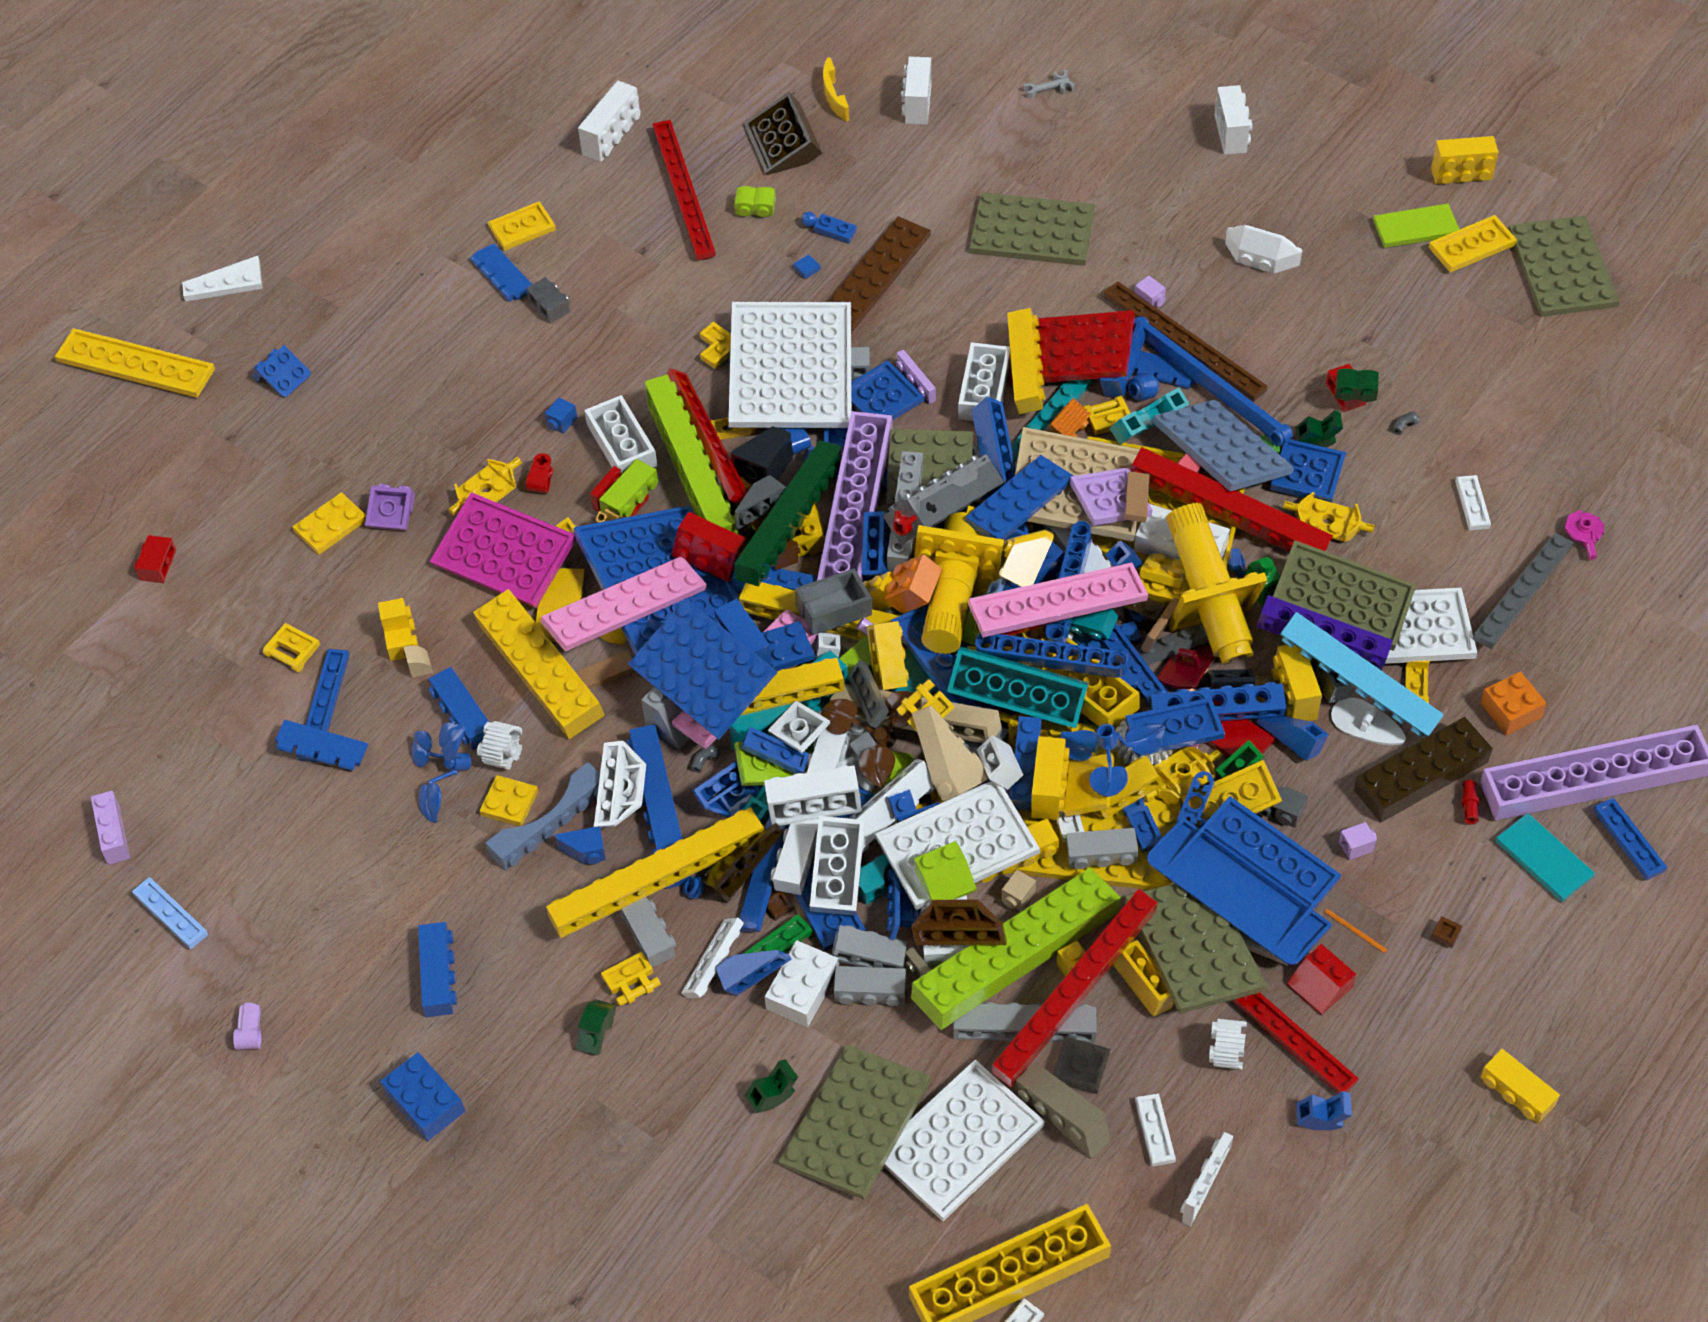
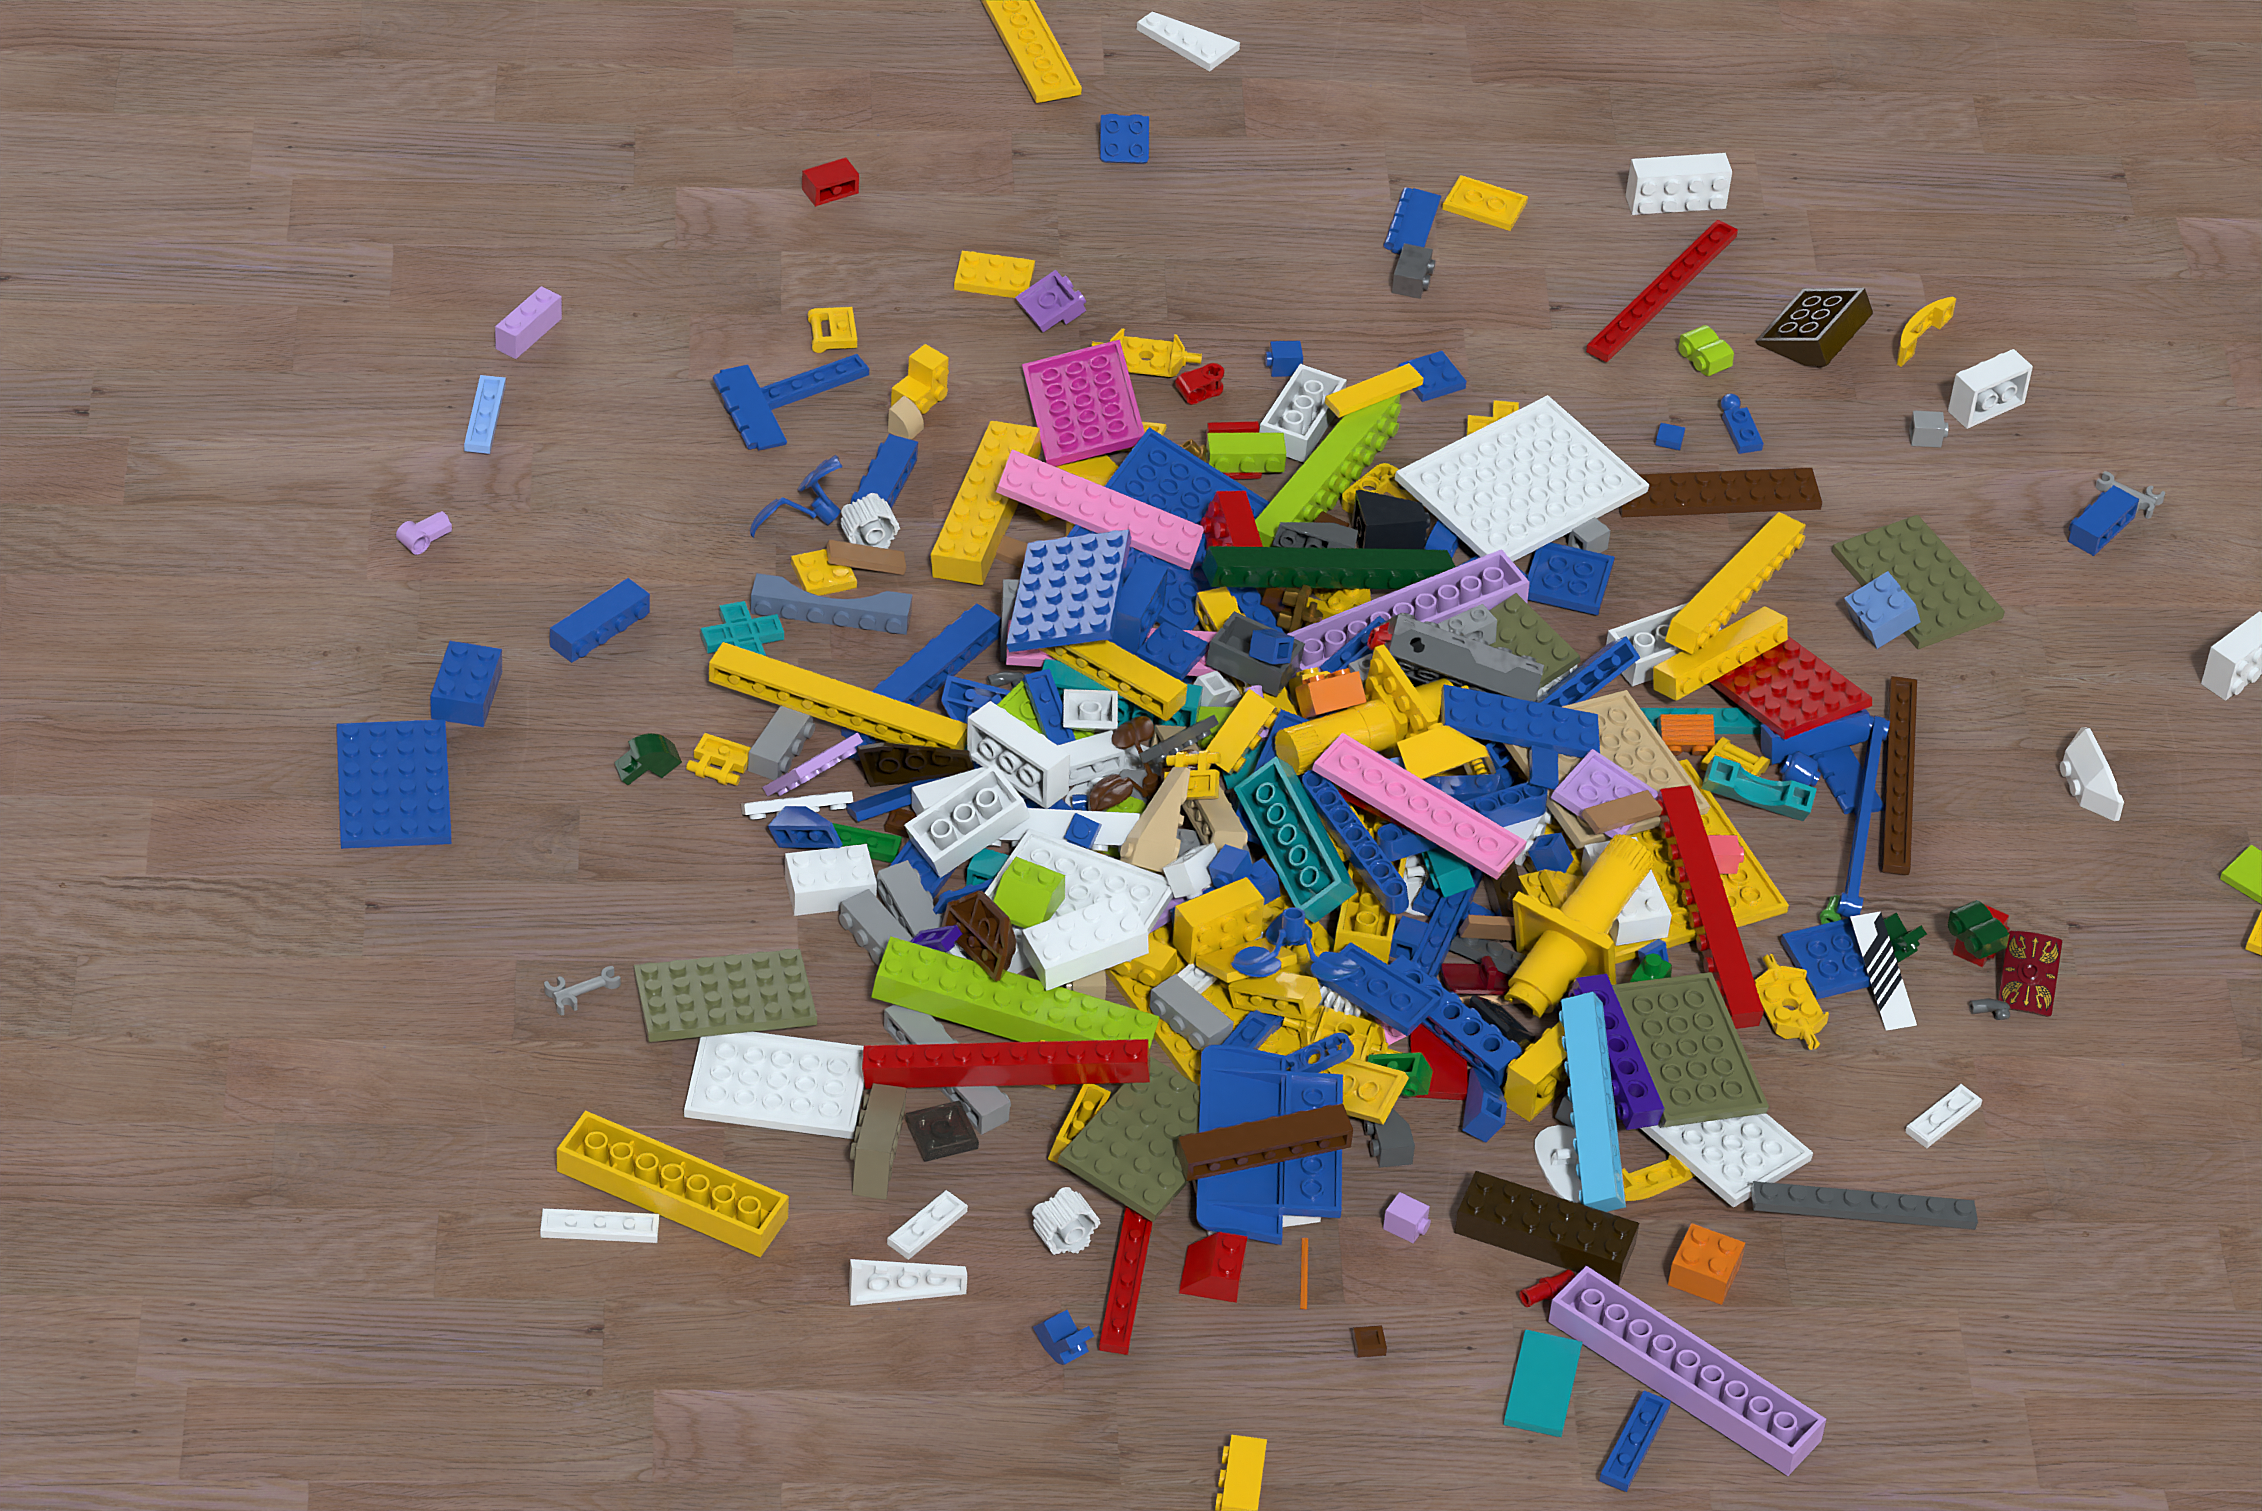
camera: 45 degrees right, 10 degrees down
(472, 1209) = (393, 784): none -> blue plate
(523, 766) = (866, 557): none -> medium nougat tile
(524, 887) = (742, 630): none -> teal plate
(583, 845) = (828, 647): blue slope -> none
(619, 784) = (906, 627): white wedge -> none
(644, 350) = (1439, 376): none -> blue plate
(655, 386) = (1373, 390): none -> yellow tile
(698, 925) = (813, 766): none -> lavender plate
(707, 434) = (1371, 465): red plate -> none
(768, 1227) = (567, 996): none -> light grey bar
(772, 1090) = (698, 919): dark green brick -> none
(810, 552) = (1298, 599): none -> pearl gold hips
(851, 588) = (1271, 646): none -> blue brick
(915, 376) = (1617, 590): lavender plate -> none
(917, 141) = (1928, 429): none -> light grey brick
(928, 957) = (940, 938): none -> dark purple plate
(977, 315) = (1735, 583): none -> yellow brick
(1015, 867) = (1085, 941): none -> white brick
(1020, 740) = (1230, 866): none -> blue brick
(1052, 257) = (1884, 608): none -> medium blue piece
(1063, 111) = (2103, 520): none -> blue brick
(1068, 512) = (1543, 767): none -> blue tile
(1151, 291) = (1931, 714): lavender brick -> none
(1222, 445) = (1783, 863): sand blue plate -> none
(1260, 880) = (1264, 1142): none -> reddish brown brick
(1342, 454) = (1883, 971): none -> white sticker
(1400, 384) = (2030, 972): none -> dark red shield
(1585, 530) = (2004, 1222): dark pink piece -> none

